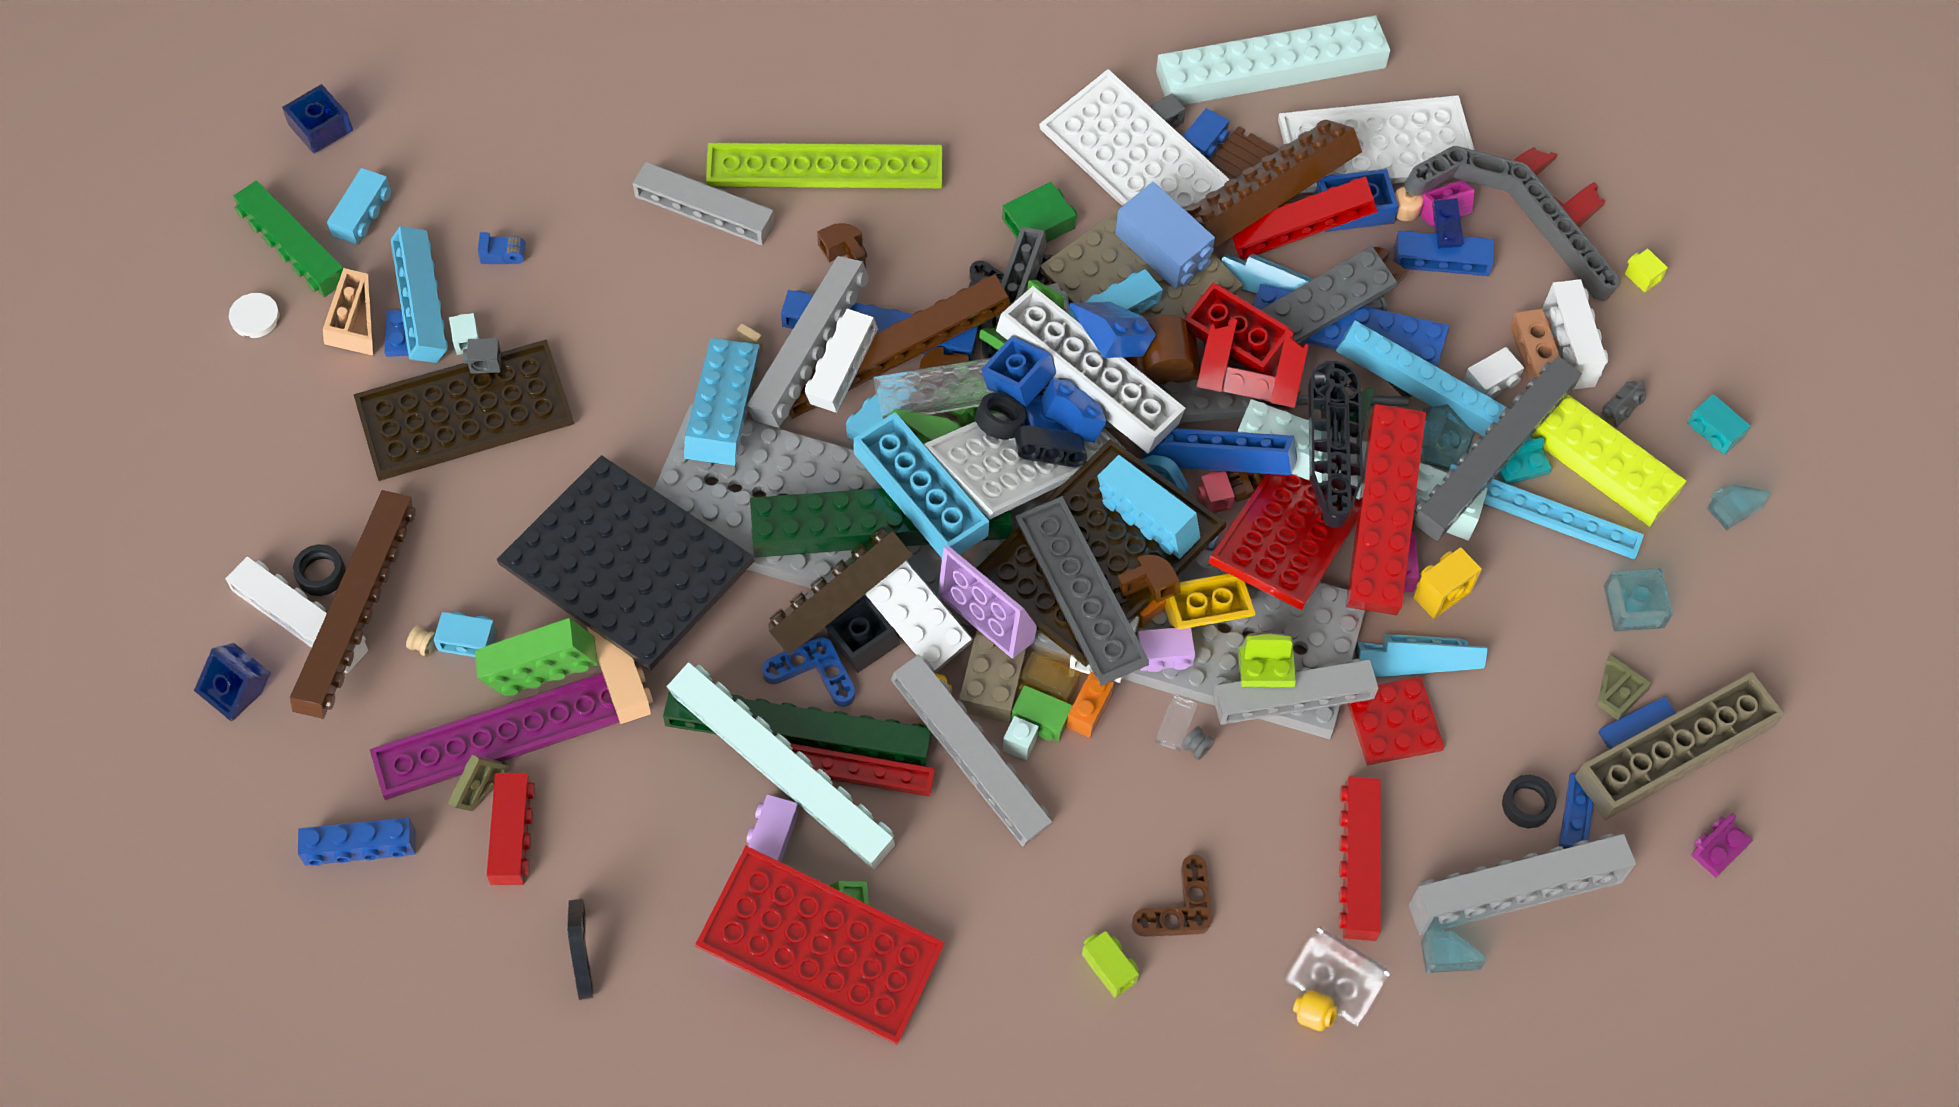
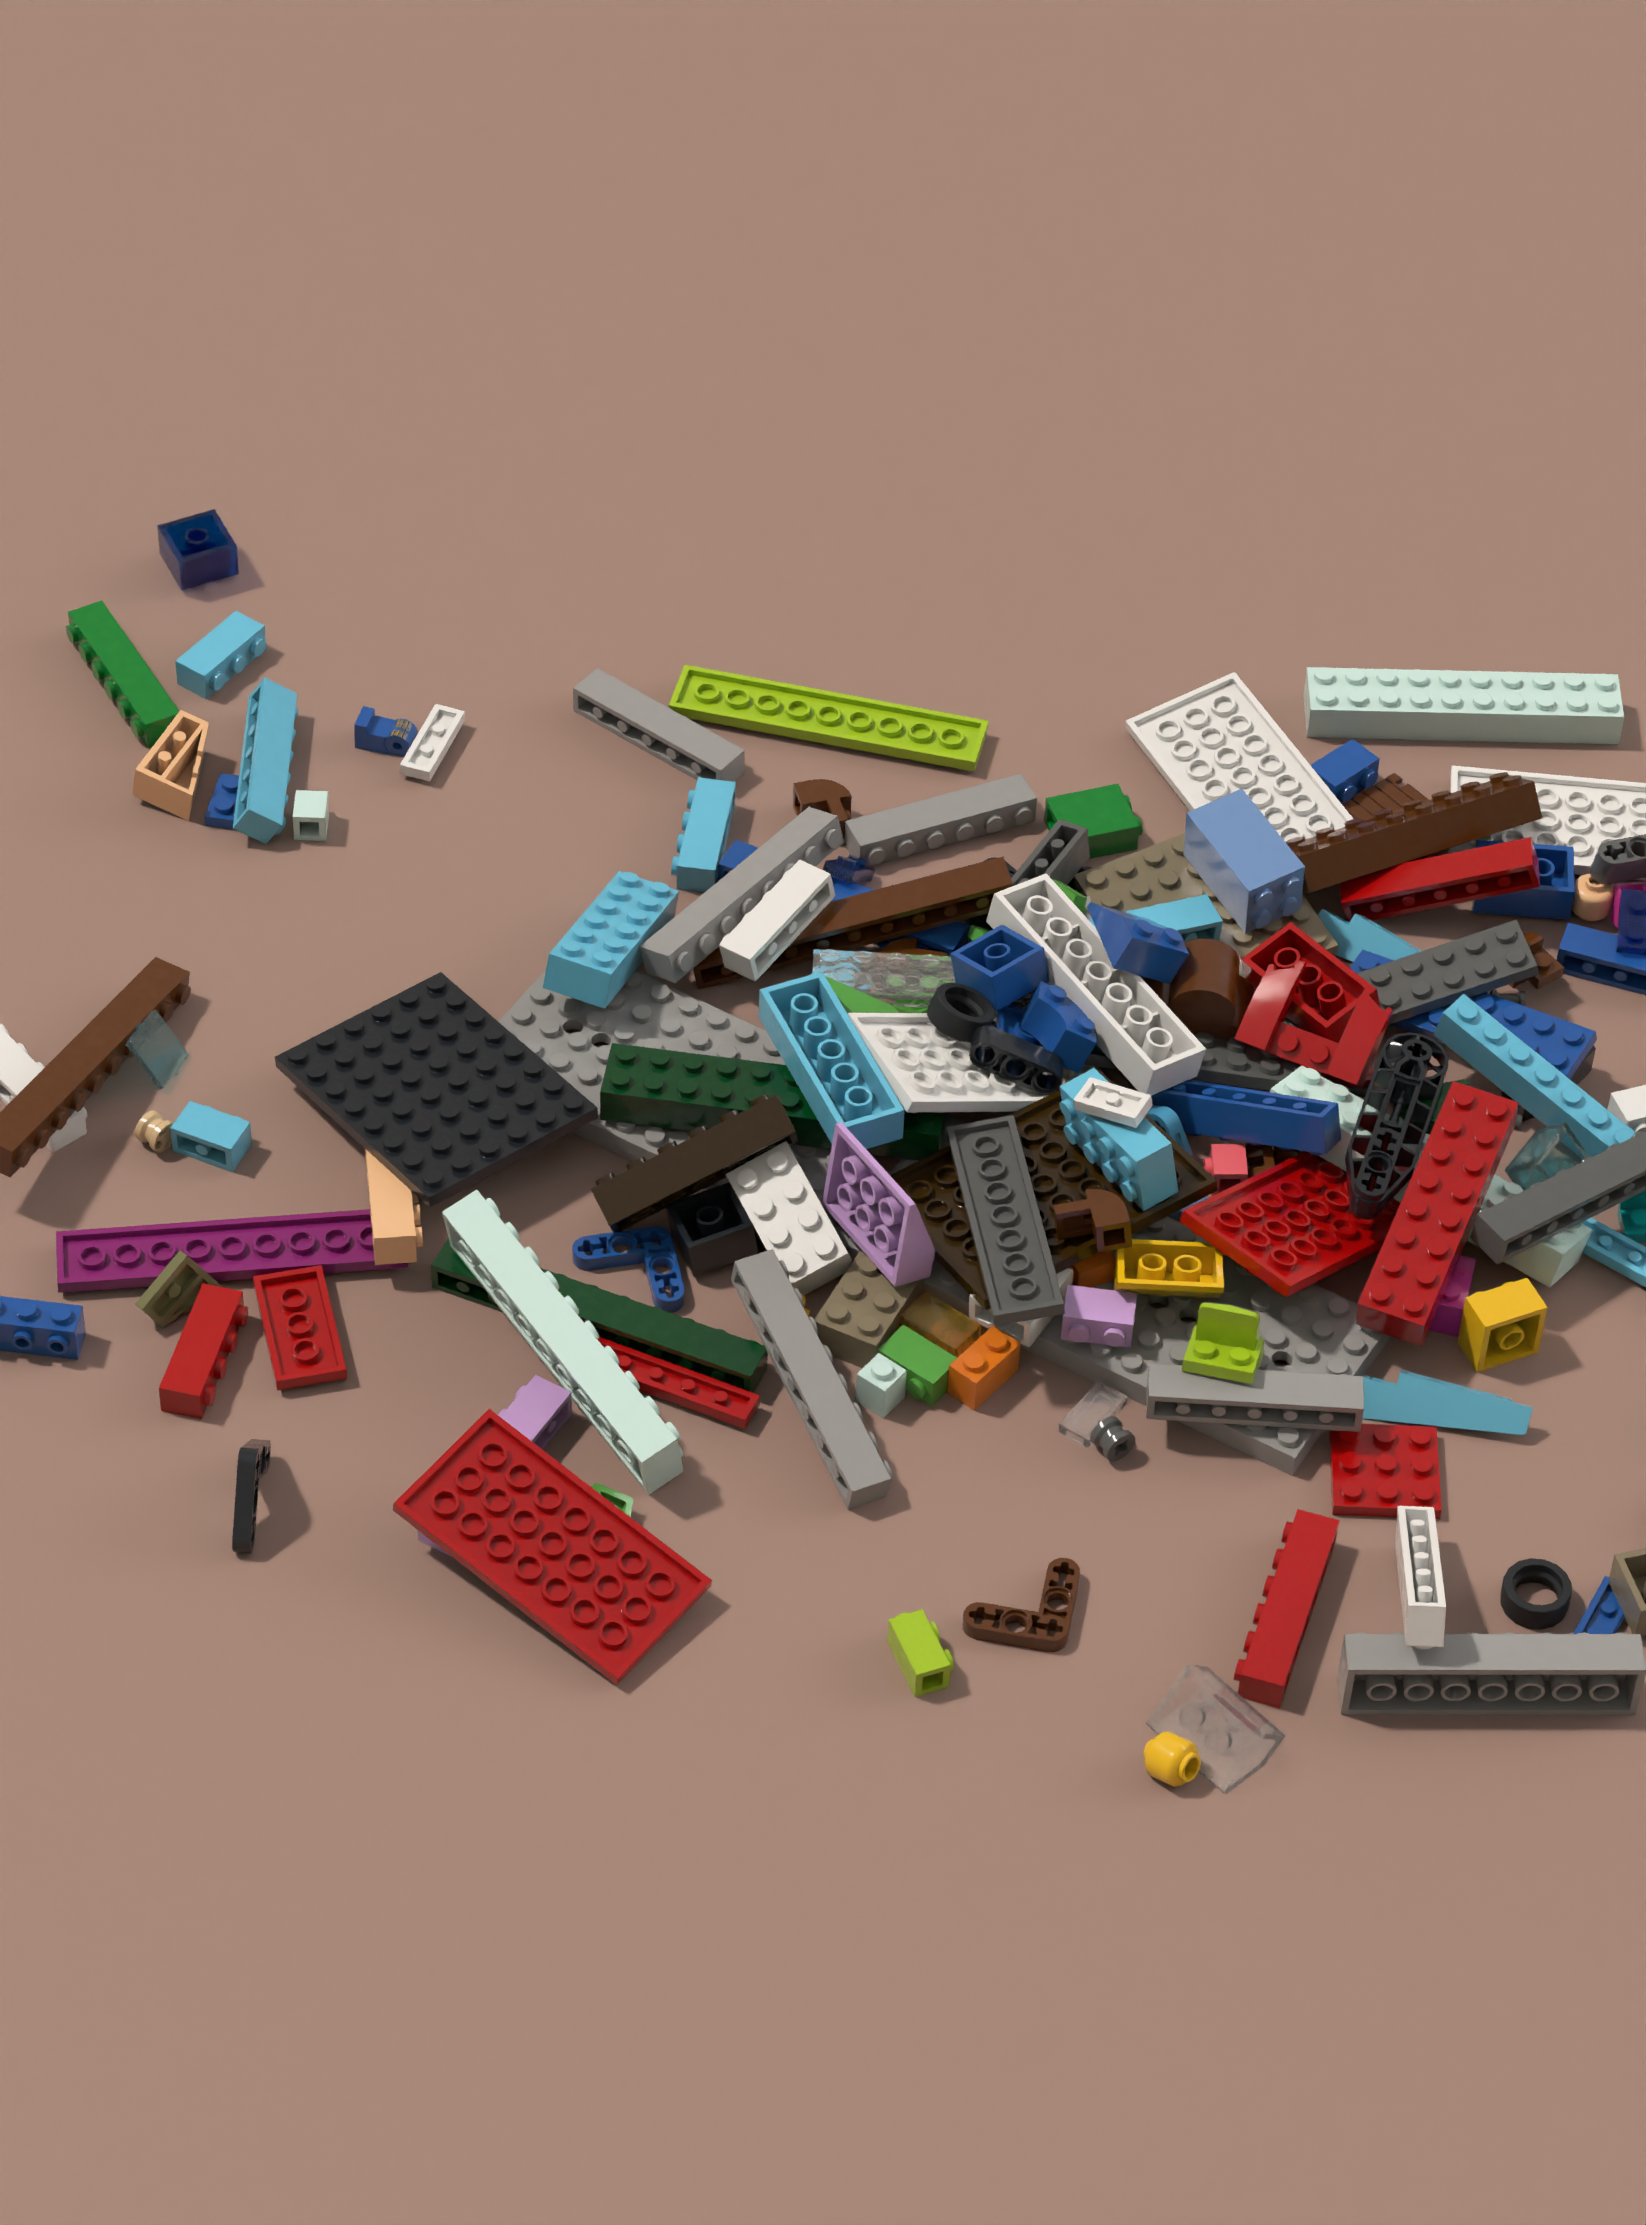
camera: 15 degrees right, 15 degrees down
(254, 315) = (55, 749): white tile -> none
(308, 556) = (45, 1015): black tyre -> none
(404, 570) = (157, 1049): none -> clear light blue piece
(462, 412) = (284, 897): dark brown plate -> none
(483, 355) = (326, 838): dark grey brick -> none
(536, 657) = (291, 1164): bright green brick -> none
(538, 249) = (432, 742): none -> white plate
(577, 789) = (299, 1327): none -> red plate
(748, 335) = (668, 877): tan tile -> none
(763, 287) = (704, 835): none -> medium azure brick
(876, 296) = (849, 869): none -> clear blue plate
(930, 238) = (941, 820): none -> light grey brick
(1144, 487) = (1113, 1102): none -> white plate
(1170, 110) = (1305, 736): dark grey brick -> none
(1449, 952) = (1372, 1736): clear light blue slope -> none
(1457, 823) = (1420, 1577): none -> white brick

